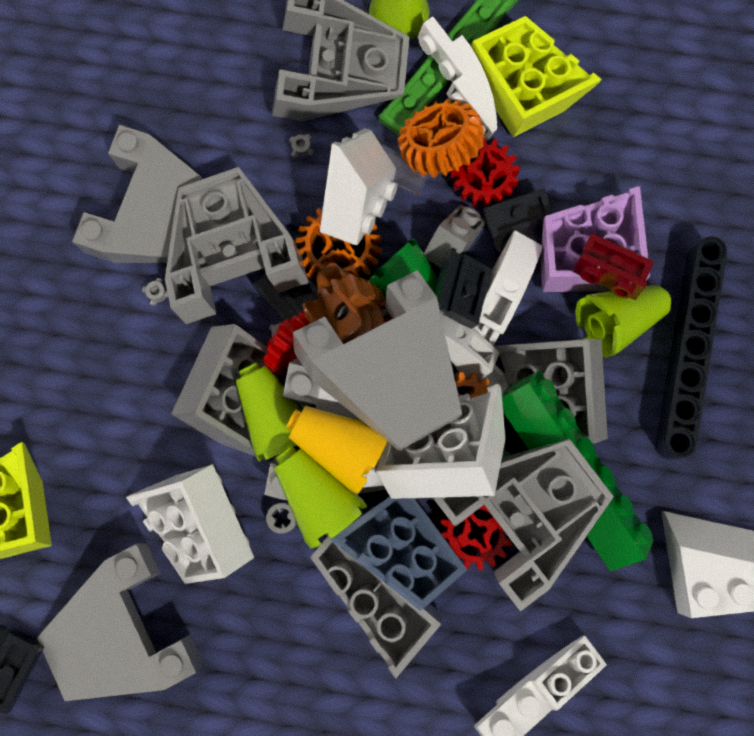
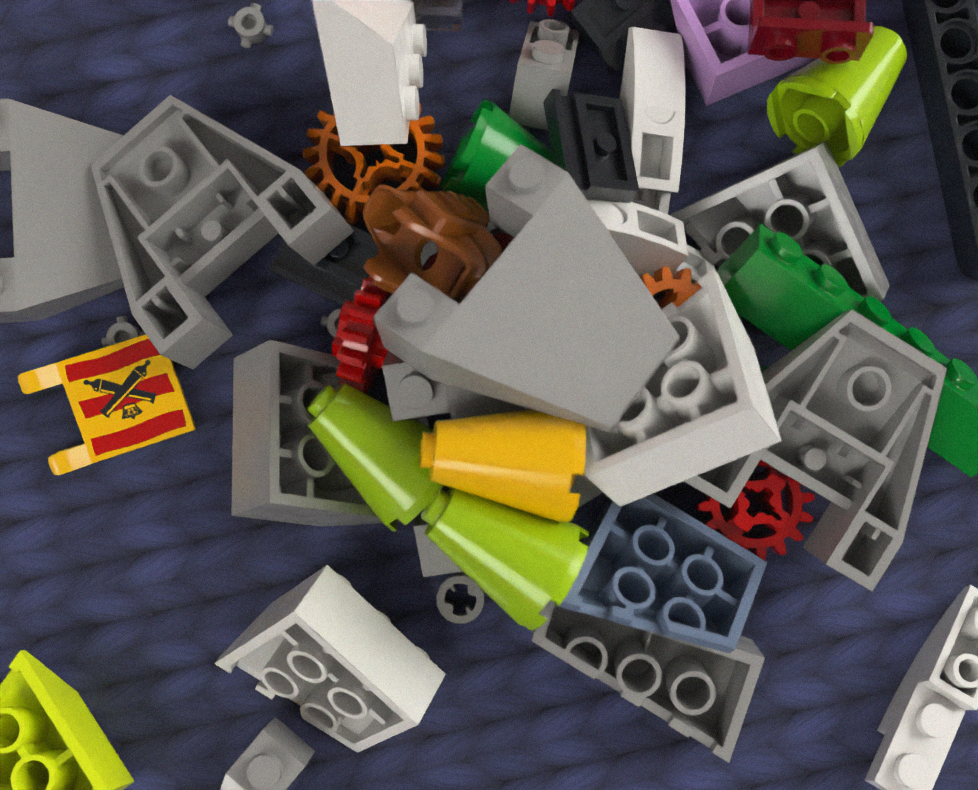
camera: 25 degrees left, 5 degrees up
(138, 324) = (120, 400): none -> flag

